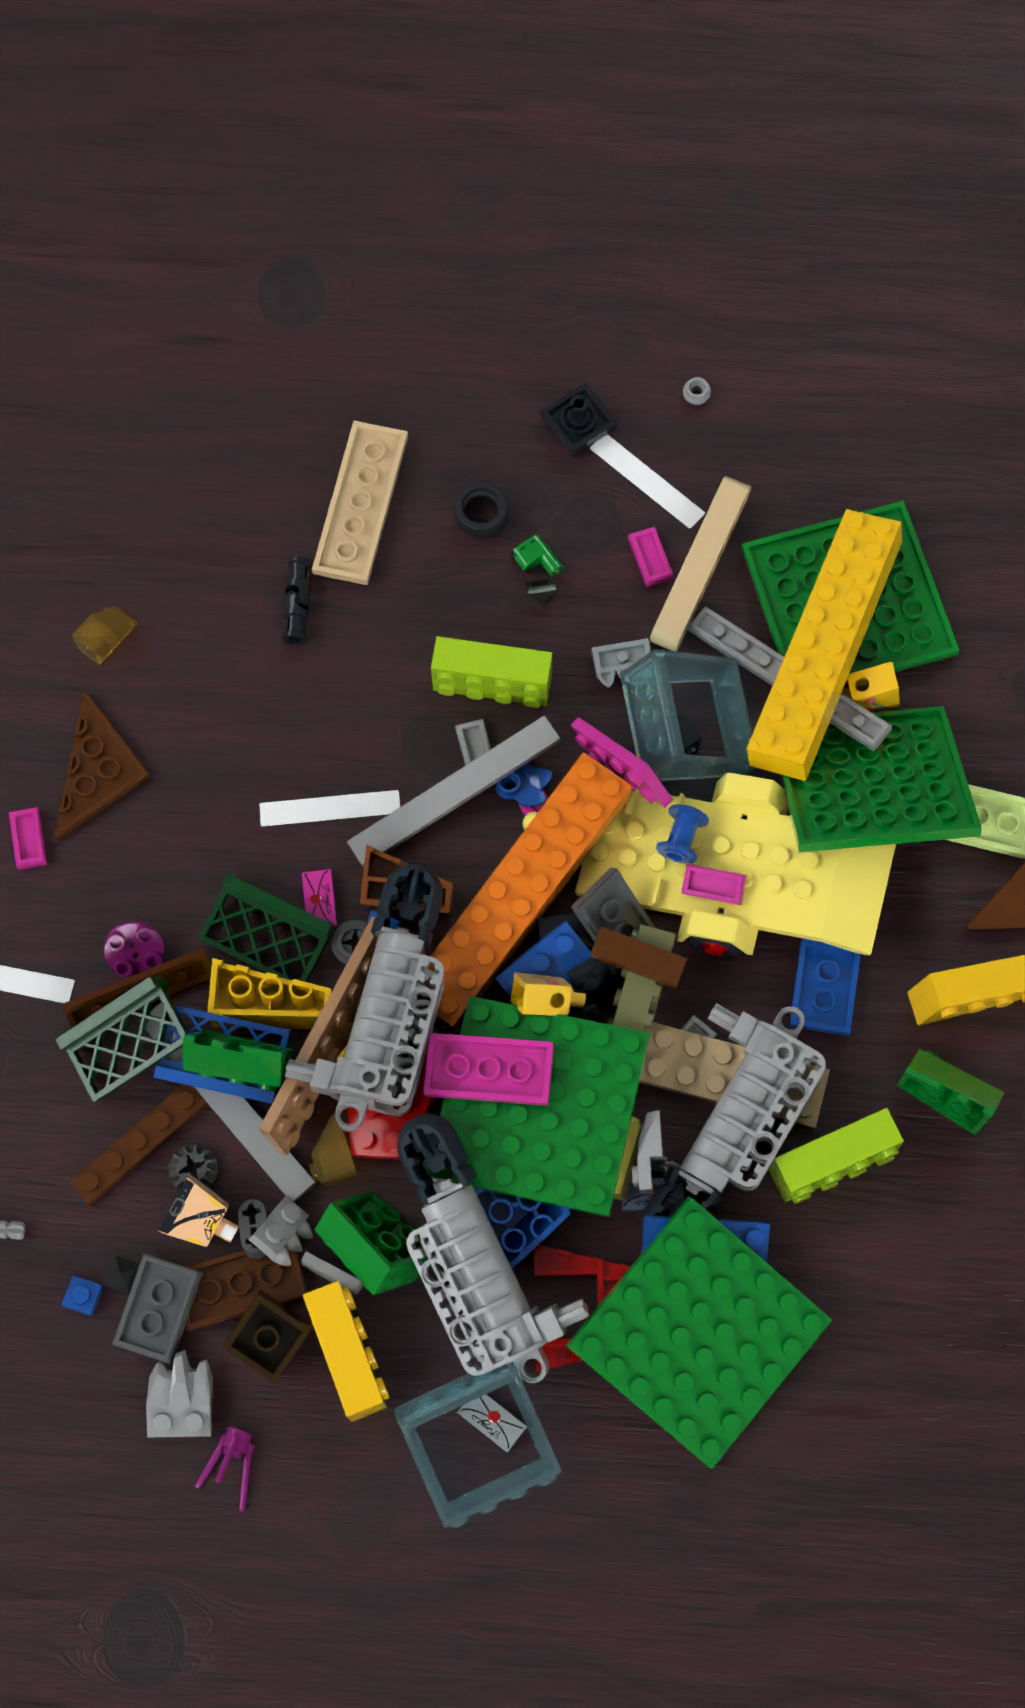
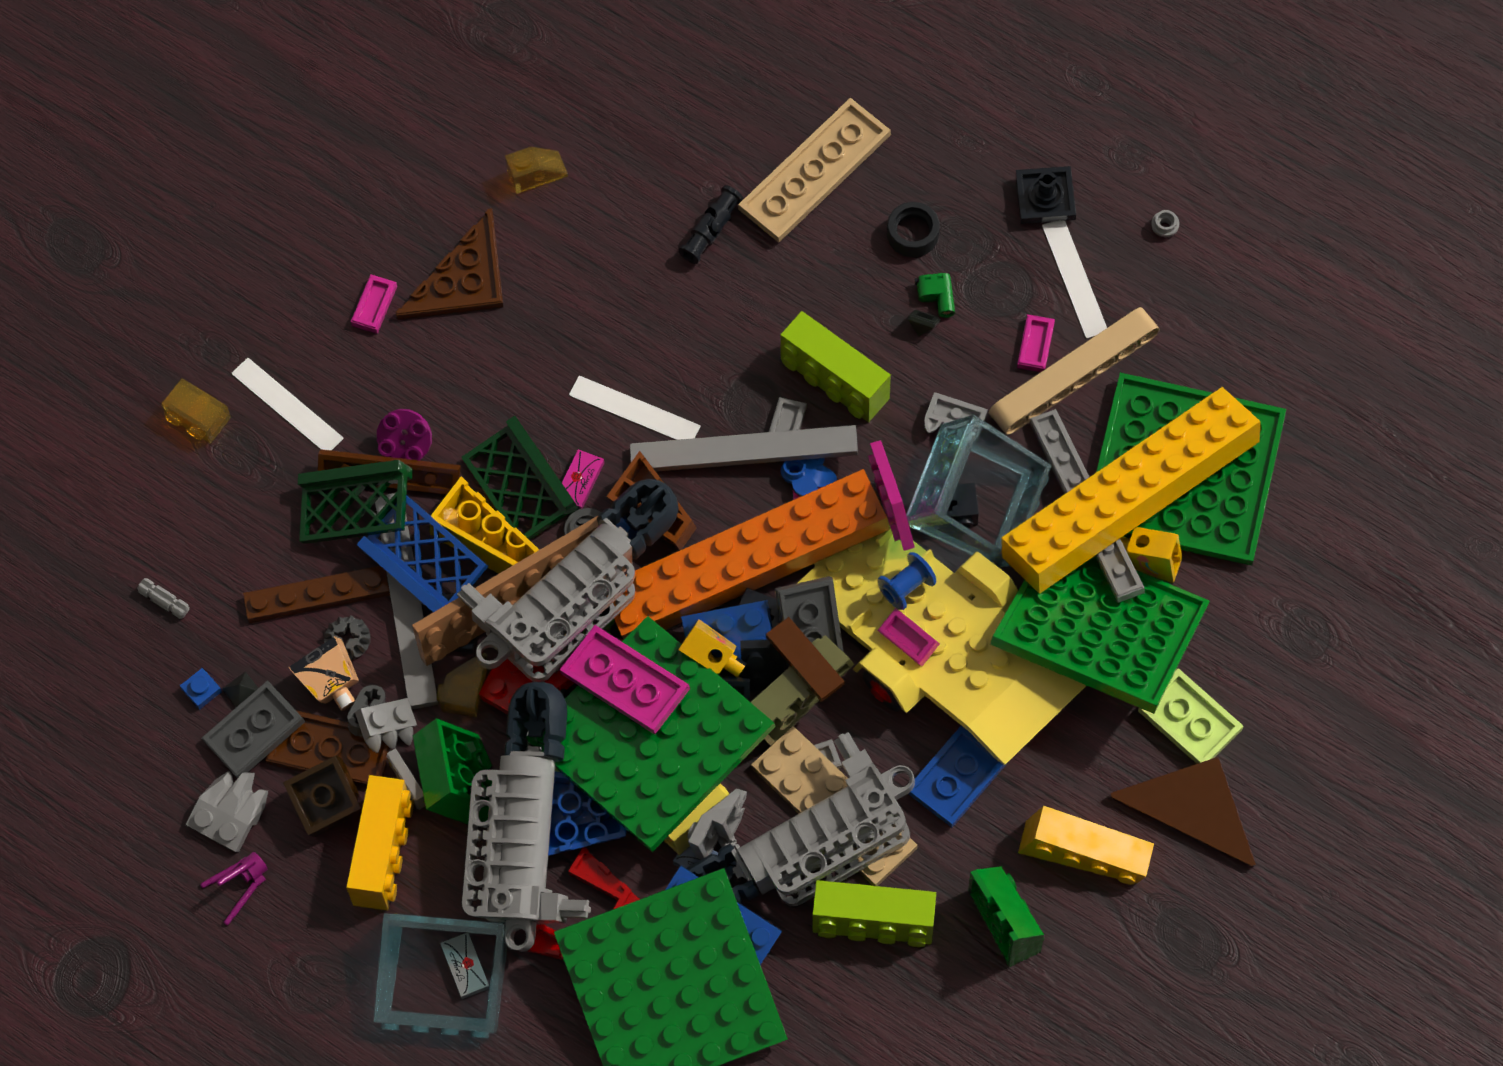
camera: 30 degrees right, 5 degrees down
(235, 1058) = (425, 559): green wedge -> none

